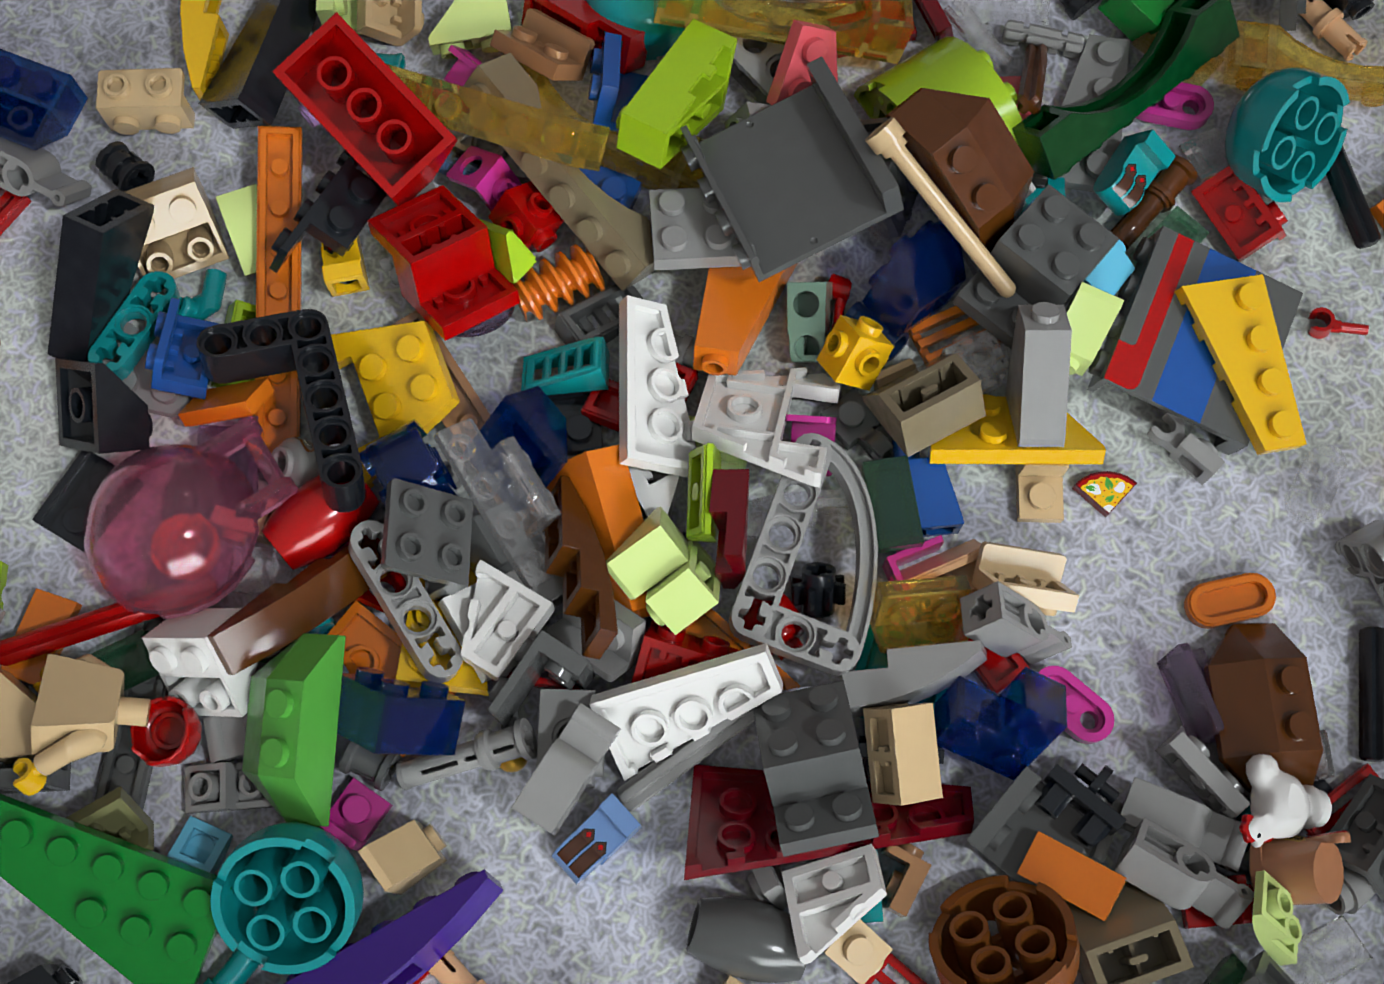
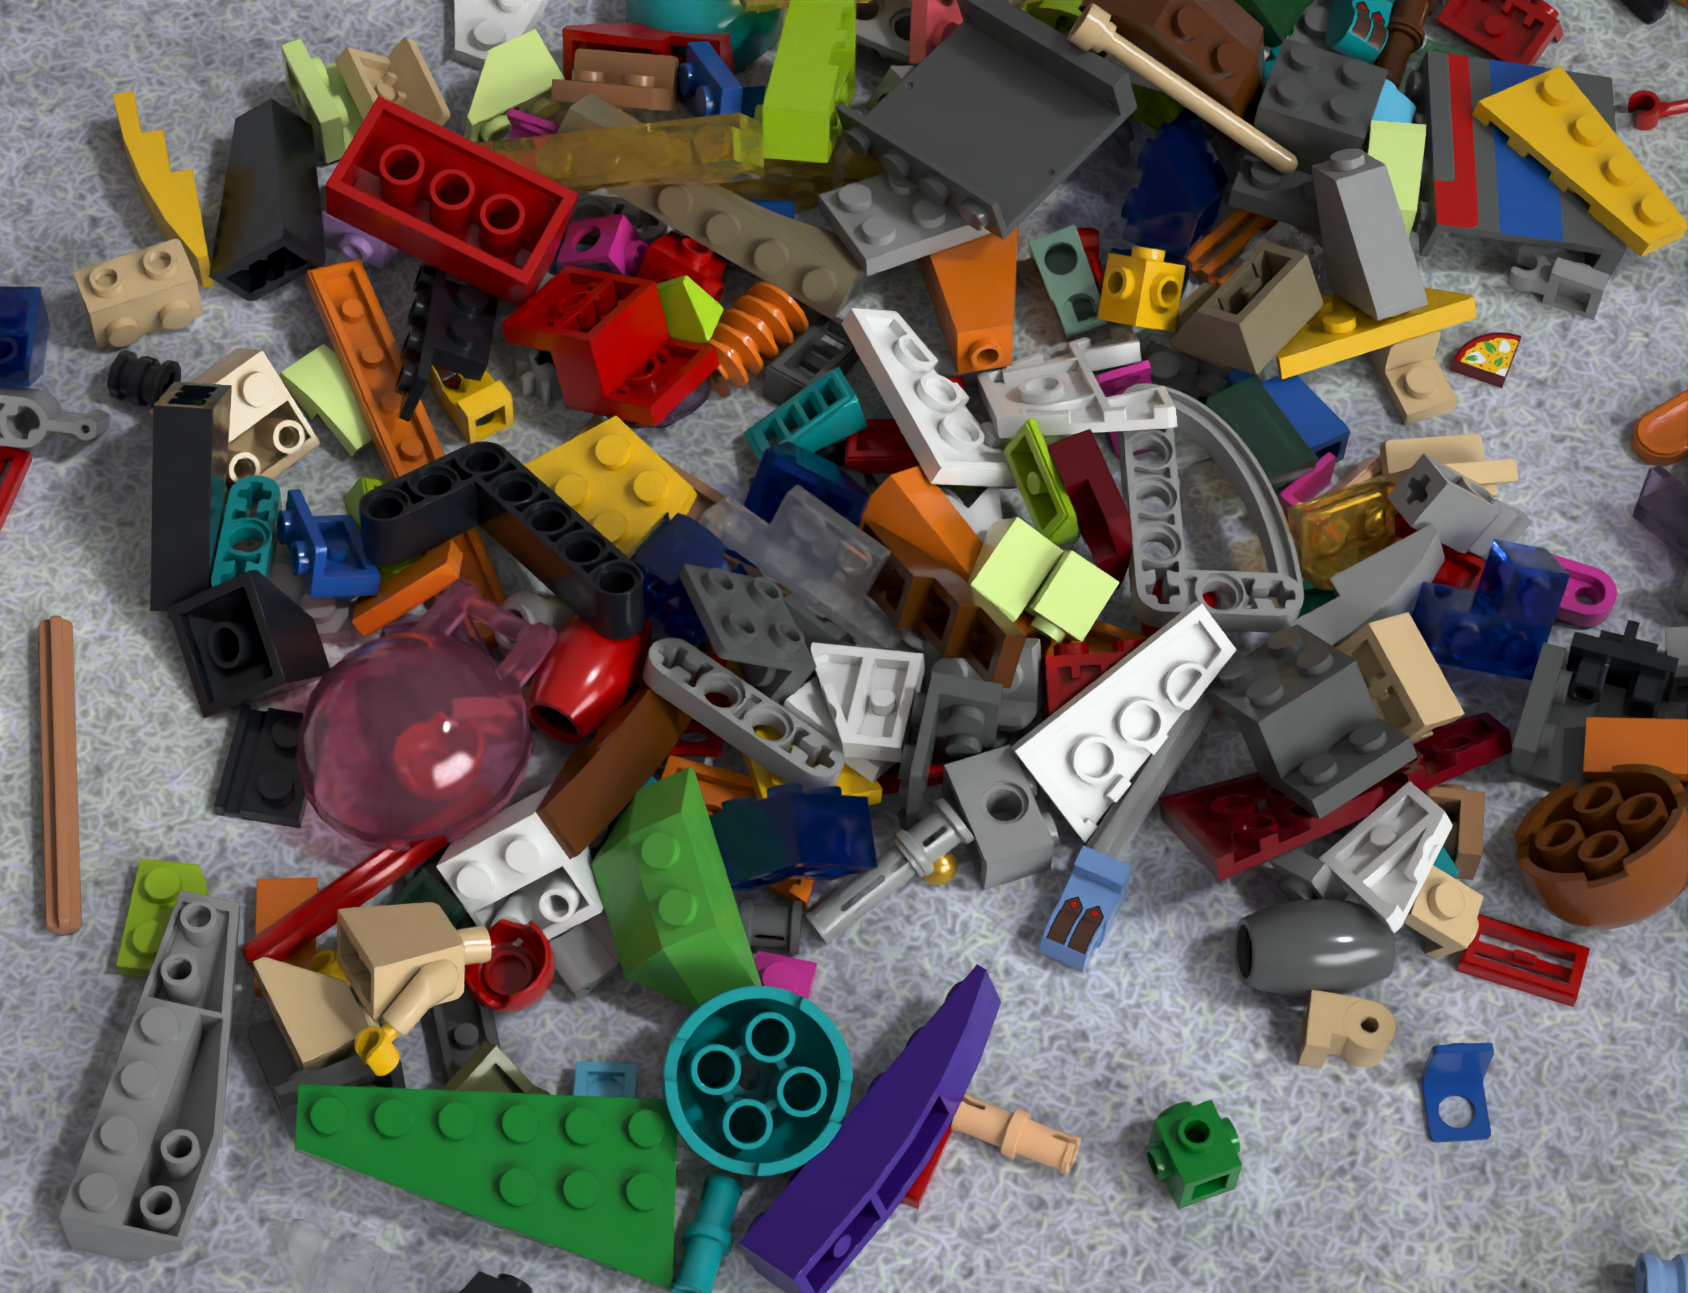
camera: 25 degrees left, 15 degrees down
(210, 298) = (319, 483): teal arm -> none
(220, 788) = (608, 1018): light grey slope -> none
(404, 856) = (867, 1004): tan slope -> none
(566, 769) = (1021, 831): light grey piece -> none
(818, 589) = (1217, 551): black gear -> none

